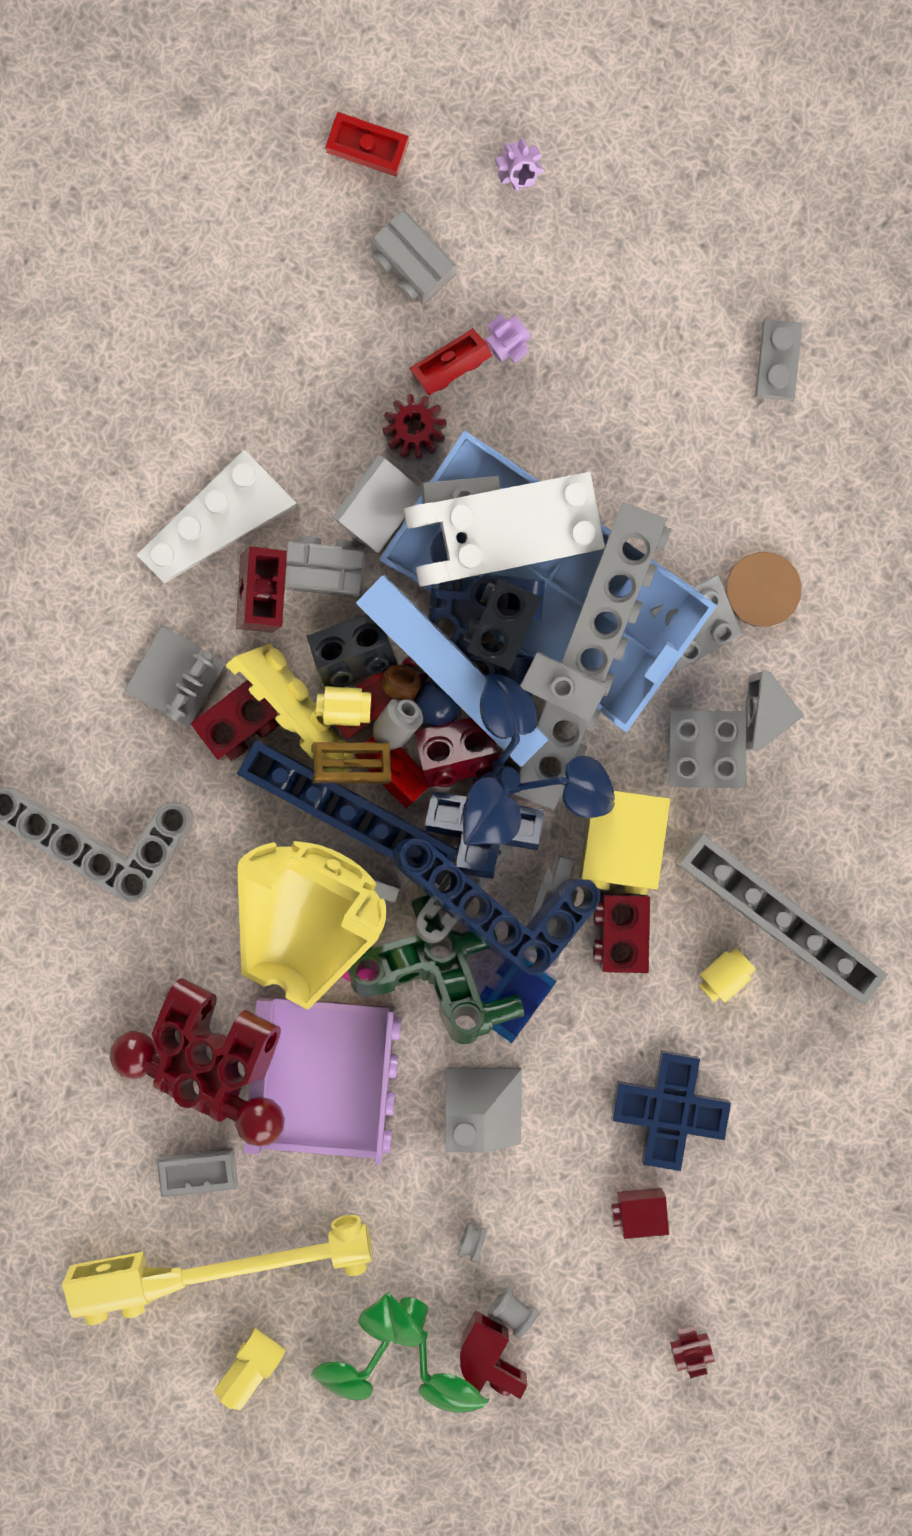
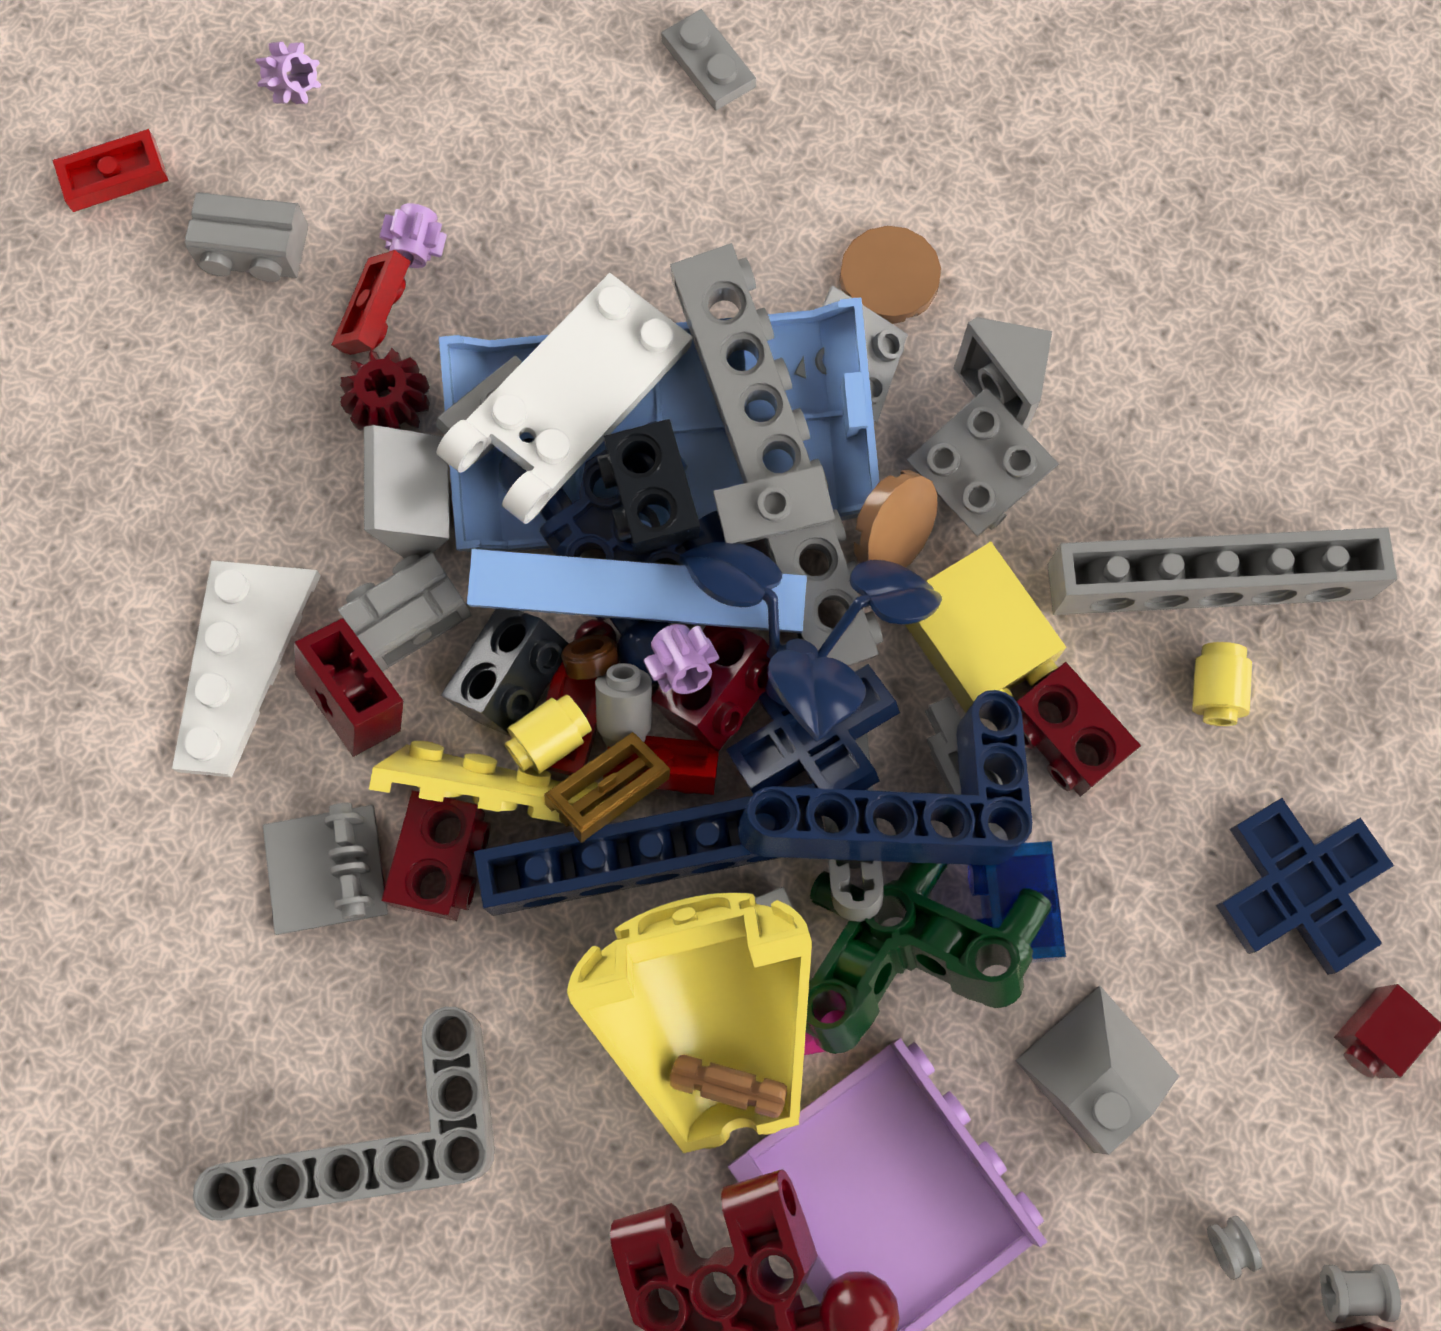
camera: 40 degrees left, 15 degrees down
(288, 963) = (728, 1086): none -> medium nougat axle
(444, 728) = (681, 659): none -> lavender gear
(629, 744) = (896, 519): none -> medium nougat tile

